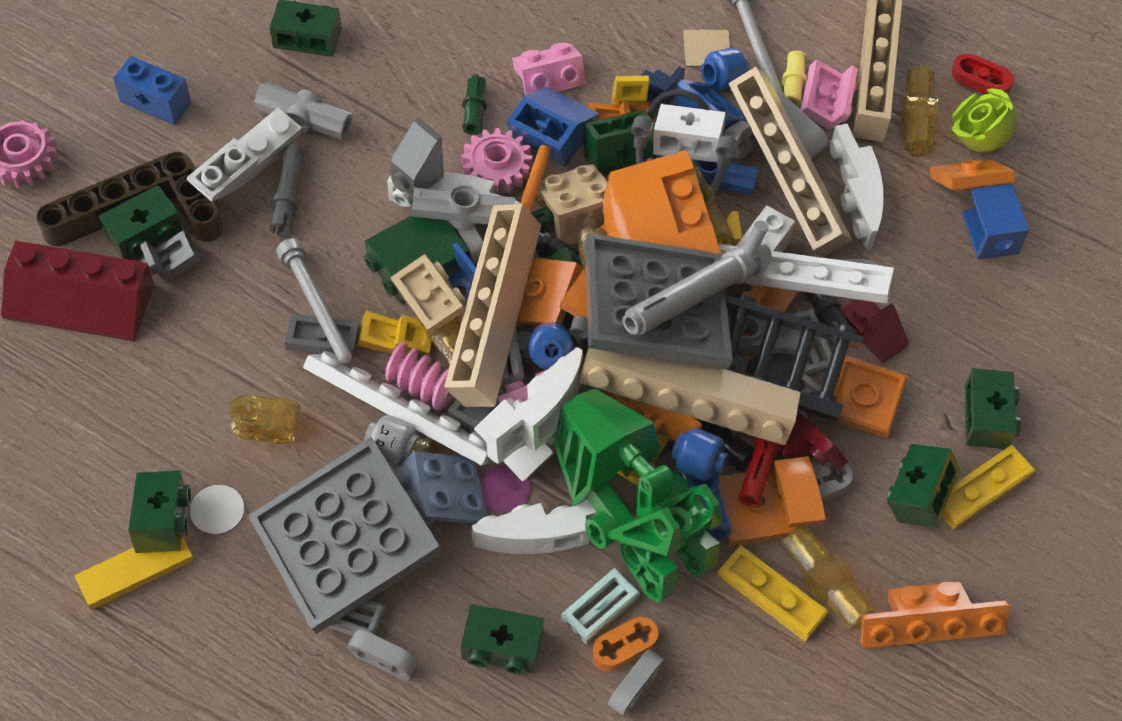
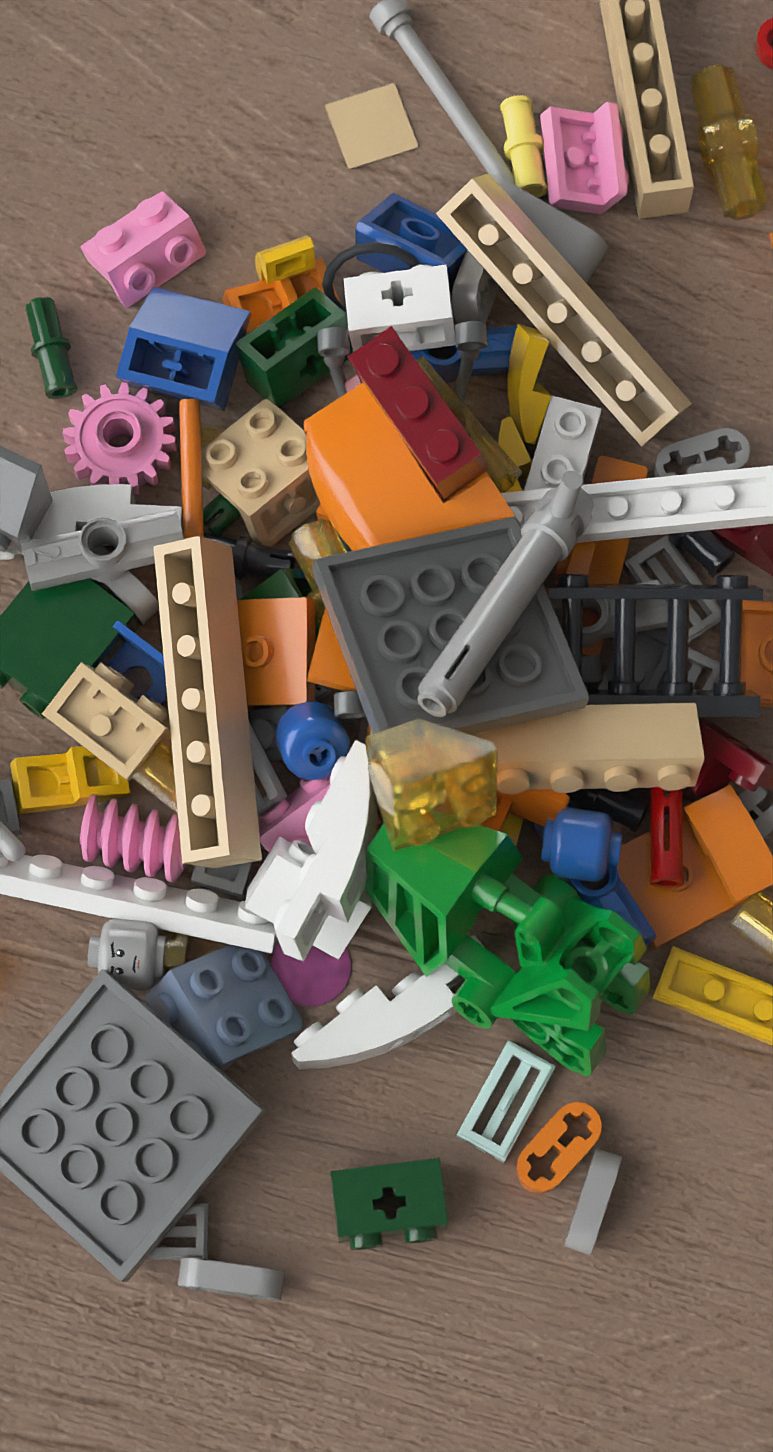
camera: 15 degrees left, 15 degrees up
(616, 370) = (431, 780): none -> clear yellow slope
(661, 82) = (325, 222): dark blue panel -> none
(680, 173) = (418, 412): none -> dark red brick
(723, 67) = (414, 164): blue head -> none
(751, 206) = (526, 397): none -> yellow slope
(863, 182) = (686, 316): white slope -> none

